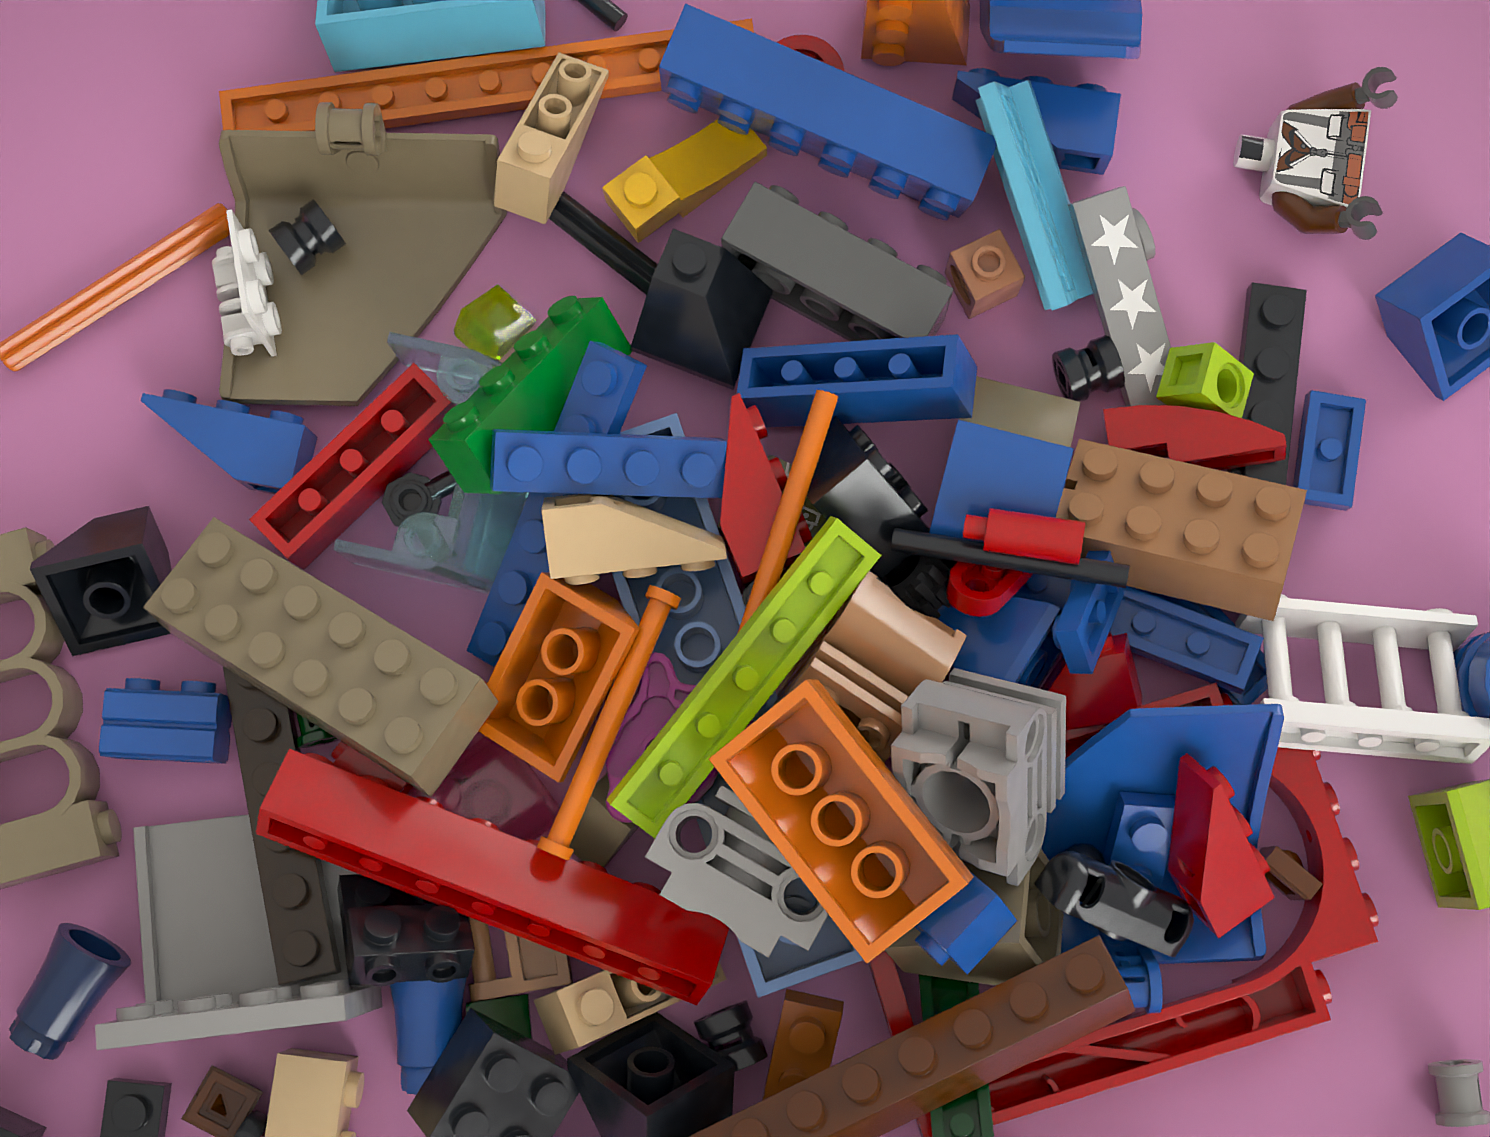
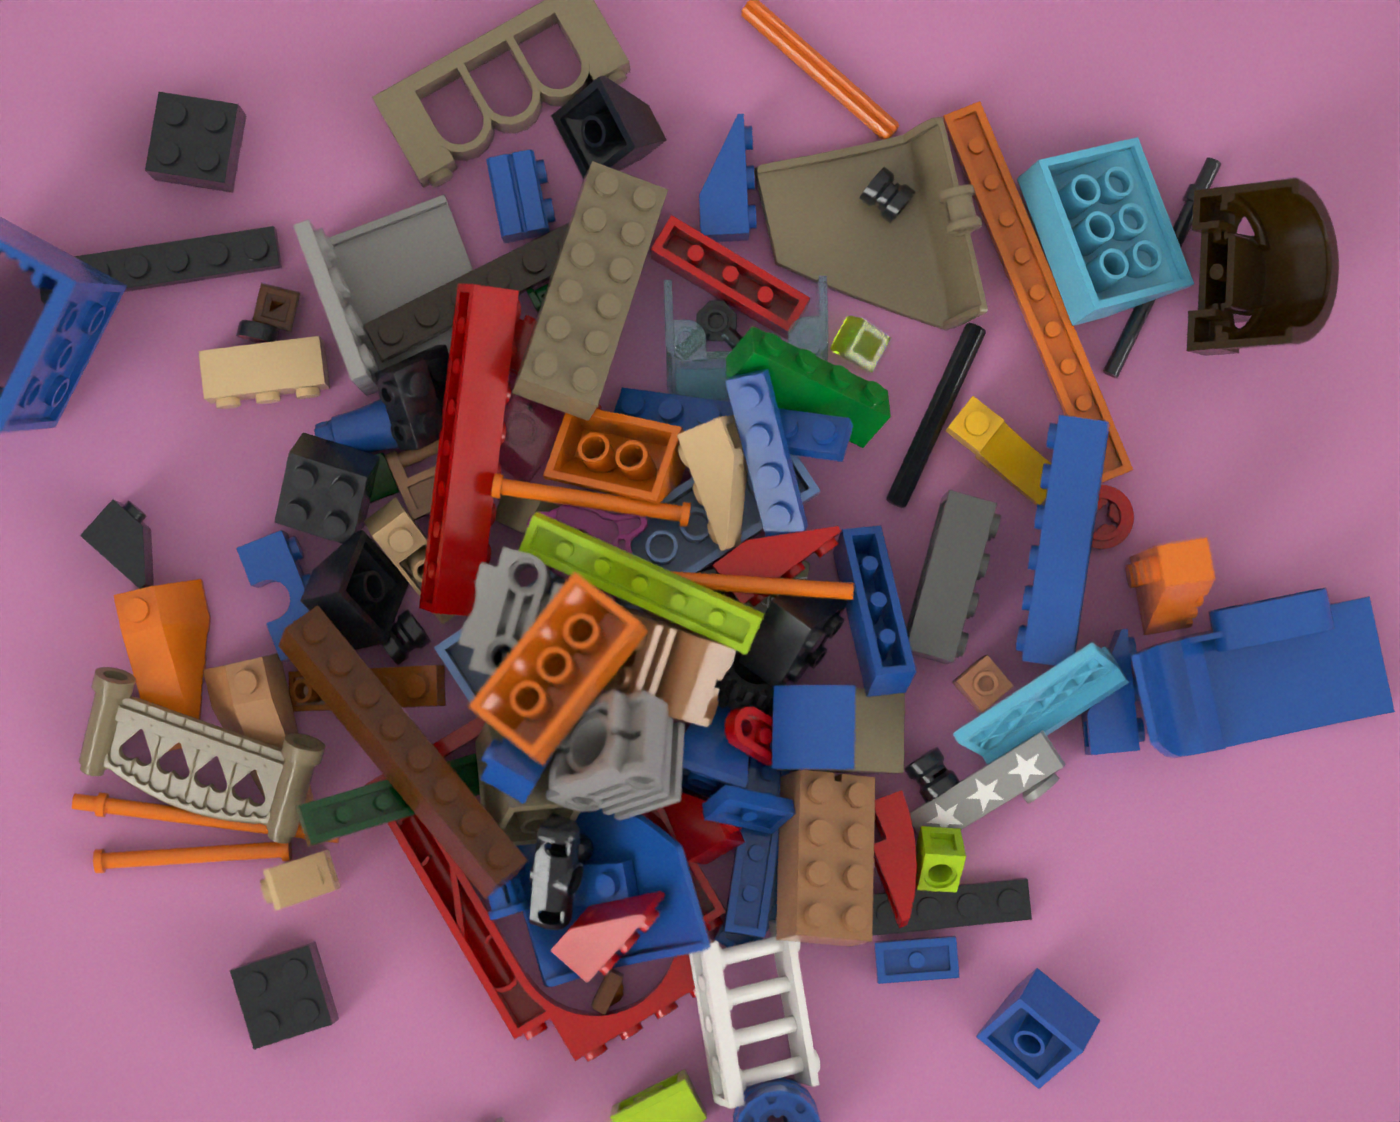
camera: 70 degrees right, 5 degrees up
(66, 989) = (326, 181): dark blue plant -> none
(241, 287) = (847, 157): white hinge -> none
(548, 139) = (1002, 348): tan slope -> none
(701, 310) = (901, 489): black slope -> none
(972, 552) = (770, 744): black bar -> none
(1027, 535) = (786, 751): red cylinder -> none
(1318, 158) = (1130, 905): torso -> none

